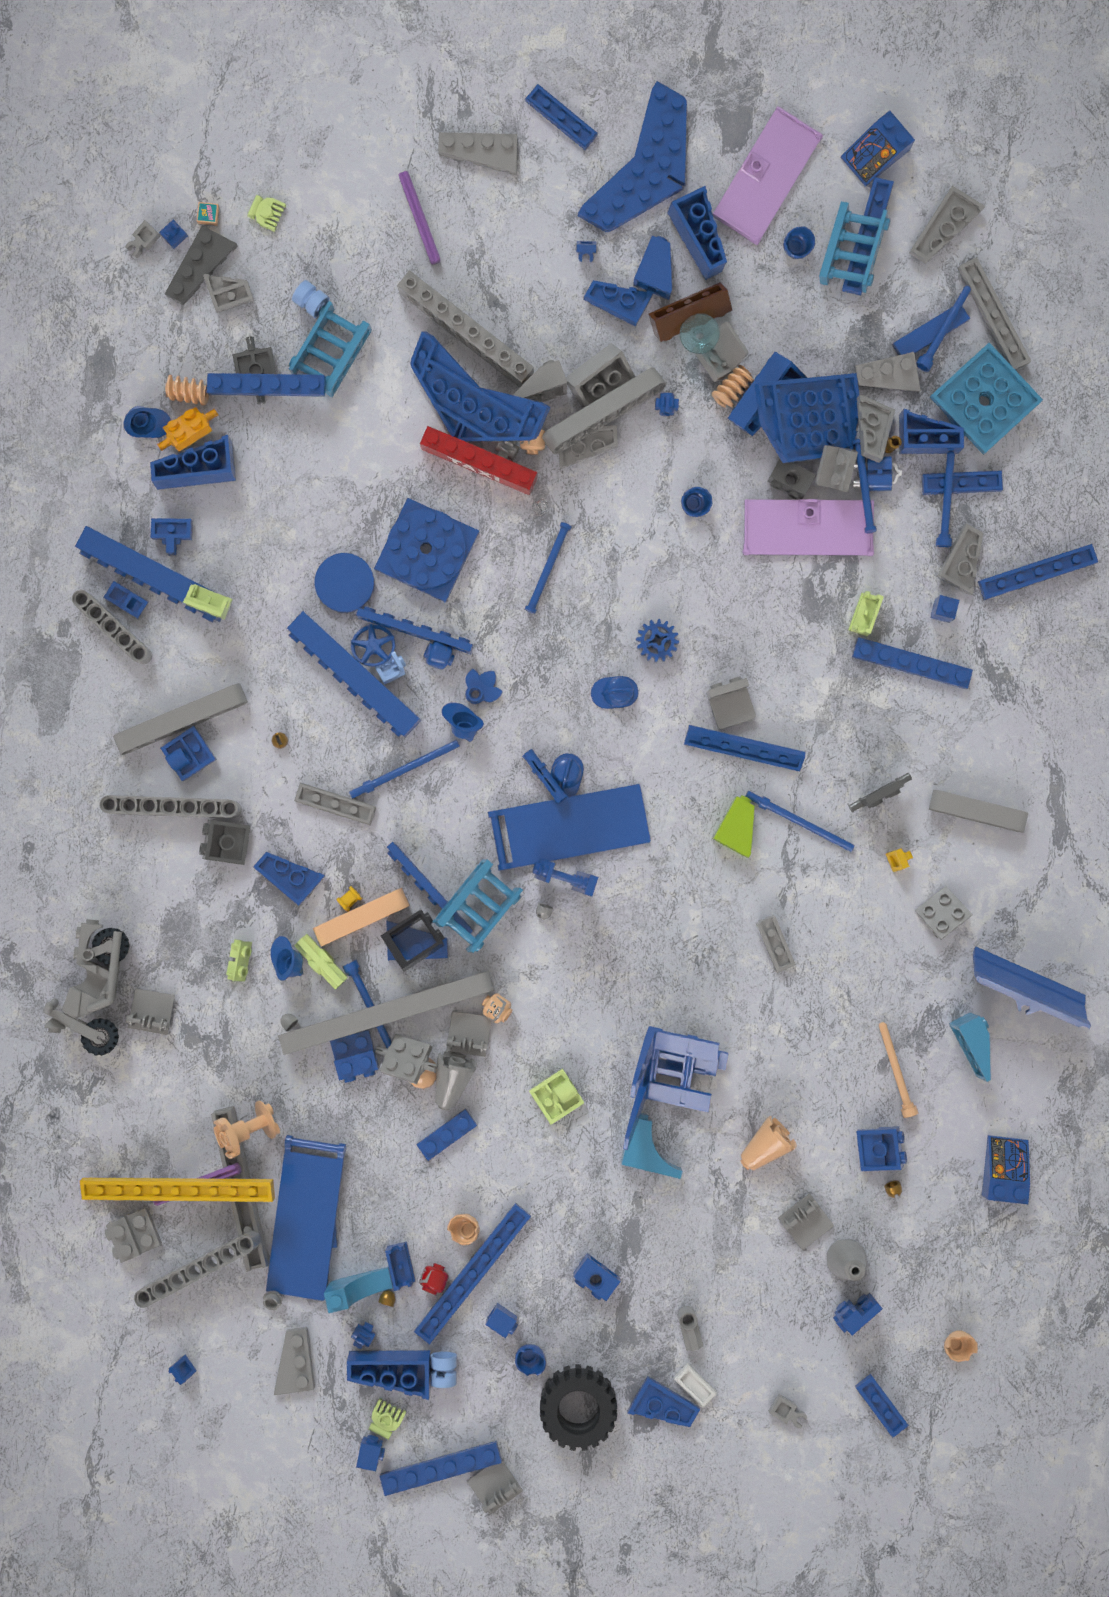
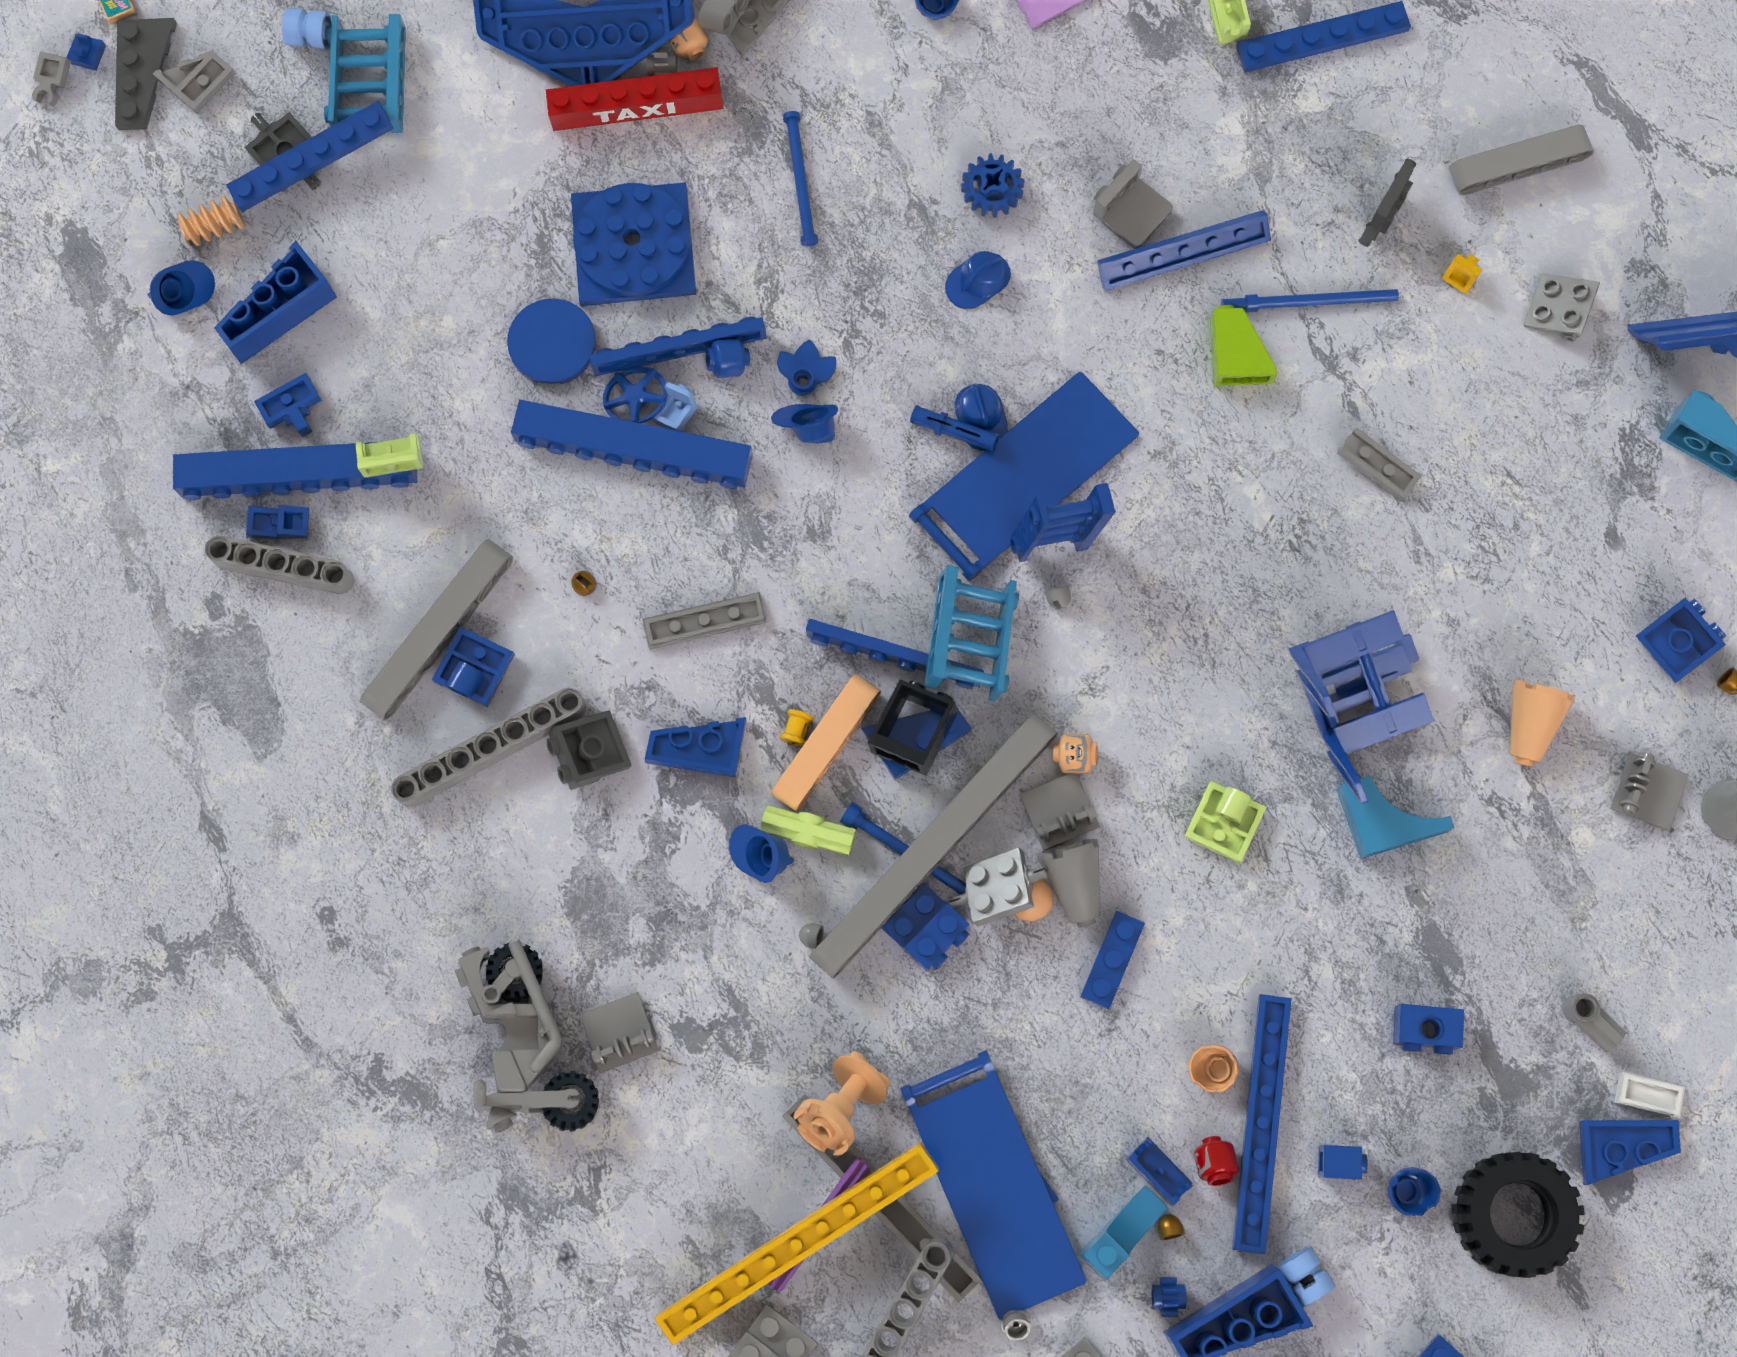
camera: 25 degrees left, 10 degrees down
(187, 429) = (238, 265): light orange plate -> none
(238, 969) = (704, 906): yellowish green hinge -> none
(368, 786) = (735, 571): blue bar -> none
(908, 1107) = (1679, 568): light nougat piece -> none

